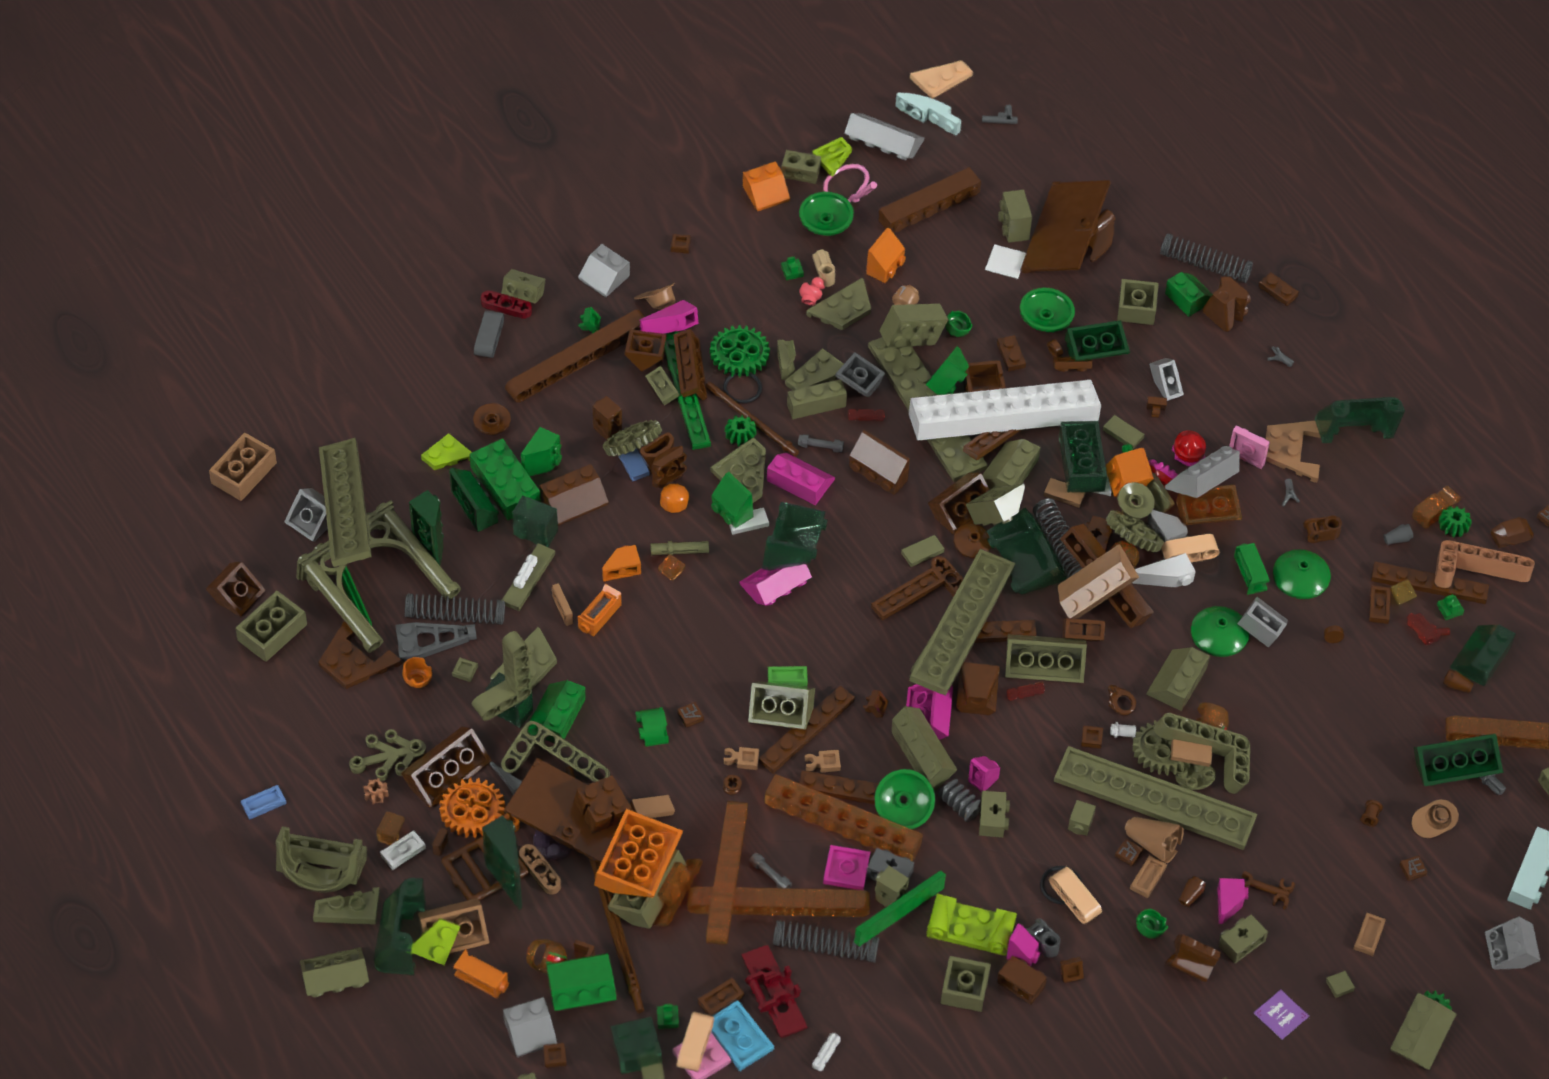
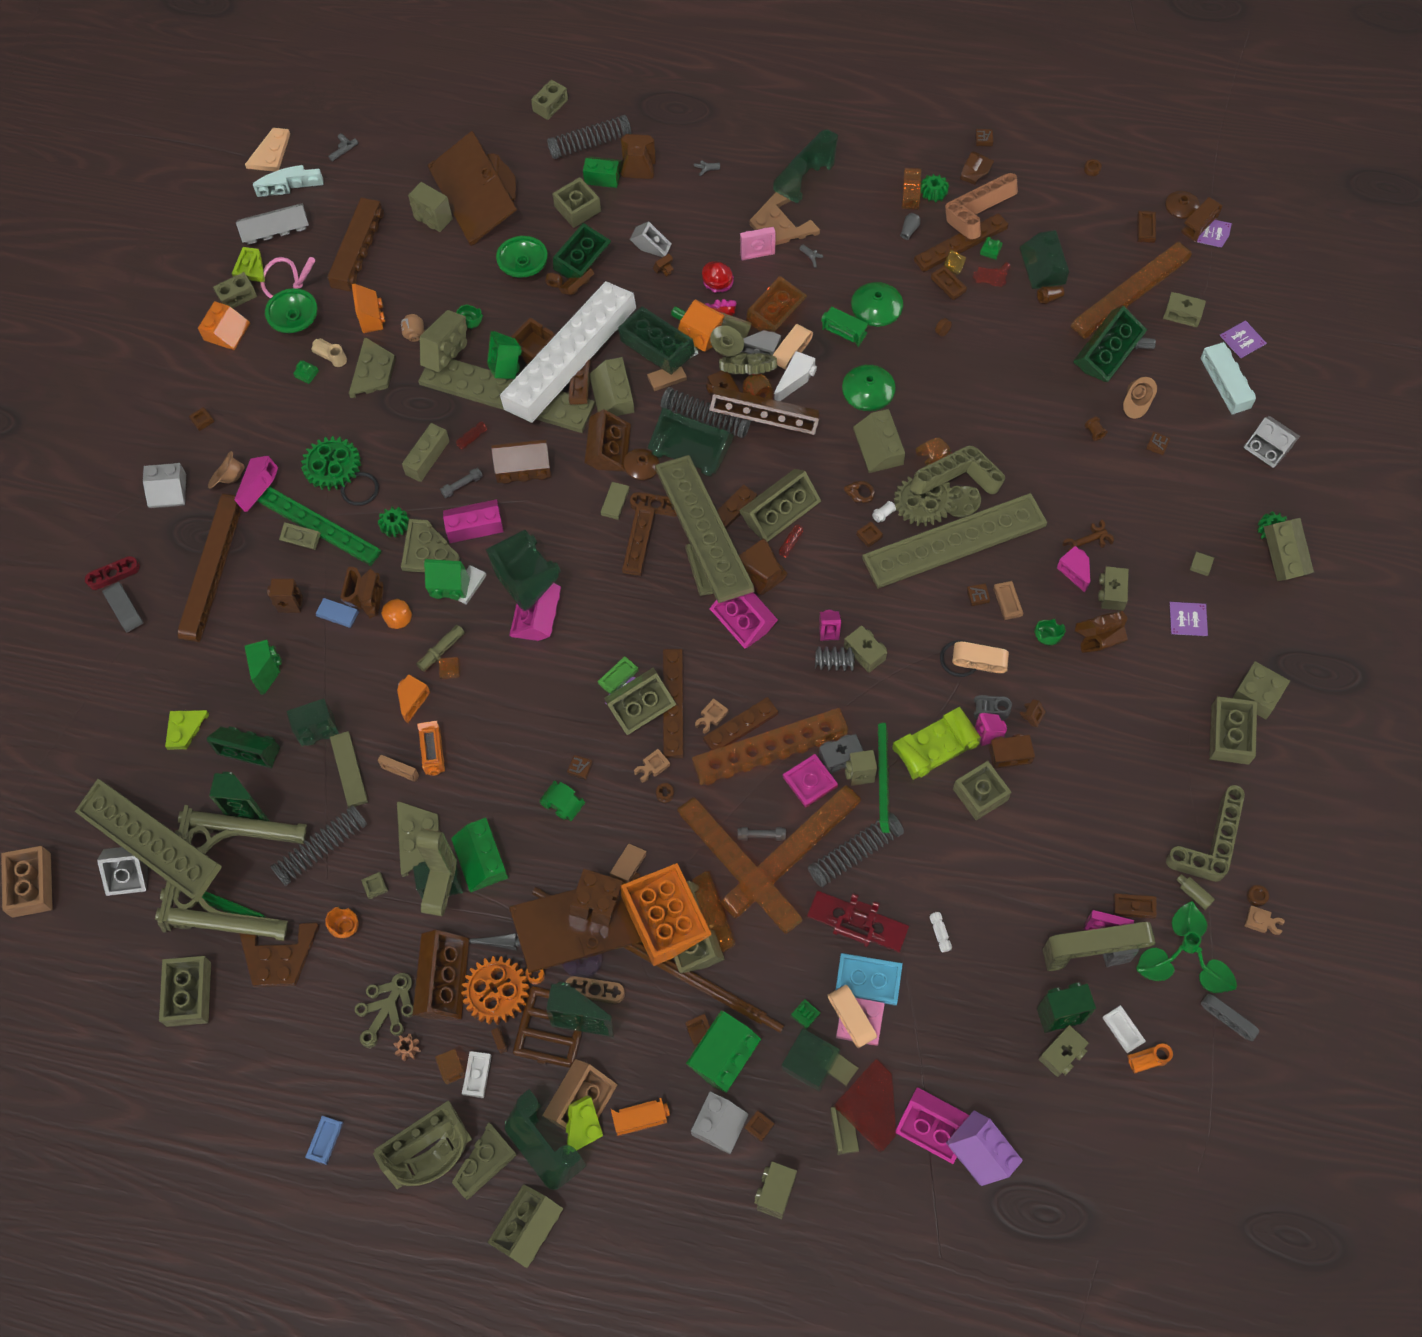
camera: 40 degrees left, 10 degrees up
(235, 588) = (122, 986): reddish brown slope -> none
(408, 641) = (308, 904): dark grey plate -> none
(492, 413) = (188, 666): reddish brown dish -> none
(503, 476) = (251, 709): green brick -> none
(523, 286) = (112, 547): olive brick -> none
(525, 571) = (344, 767): white axle -> none
(554, 953) = (679, 1051): clear orange helmet -> none
(556, 750) = (514, 887): olive beam -> none
(574, 494) = (318, 674): reddish brown slope -> none
(590, 320) = (192, 531): green tile -> none
(632, 438) = (322, 594): olive gear -> none
(645, 348) = (259, 518): reddish brown slope -> none
(690, 364) = (304, 503): reddish brown fence -> none
(720, 997) = (828, 963): reddish brown plate -> none
(786, 356) = (371, 439): olive slope -> none
(786, 445) = (439, 505): reddish brown bar -> none
(812, 292) = (340, 377): coral animal -> none
(815, 371) = (402, 432): olive wing -> none
(860, 375) = (441, 407): dark grey slope -> none
(876, 704) = (703, 639): reddish brown tile -> none
(917, 791) = (809, 689): green dish -> none
(922, 746) = (773, 645): olive slope -> none
(996, 505) = (639, 421): olive slope -> none
(1005, 261) = (453, 246): white sticker -> none
(1011, 353) = (525, 307): reddish brown plate -> none
(1081, 818) = (925, 598): olive brick -> none
(1083, 629) = (786, 462): reddish brown brick -> none
(1096, 582) = (766, 420): medium nougat slope -> none
(1123, 431) = (660, 301): olive tile -> none
(1155, 836) = (986, 568): medium nougat cone -> none
(1191, 753) = (950, 487): medium nougat tile -> none
(1192, 890) = (1047, 583): reddish brown cone -> none
(1206, 473) = (751, 283): light grey slope -> none
(1207, 204) = (549, 99): none -> olive brick
(1263, 622) = (894, 356): light grey slope -> none
(1278, 289) = (656, 122): reddish brown plate -> none
(1322, 528) = (860, 260): reddish brown piece -> none
(1369, 934) = (1181, 512): medium nougat tile -> none

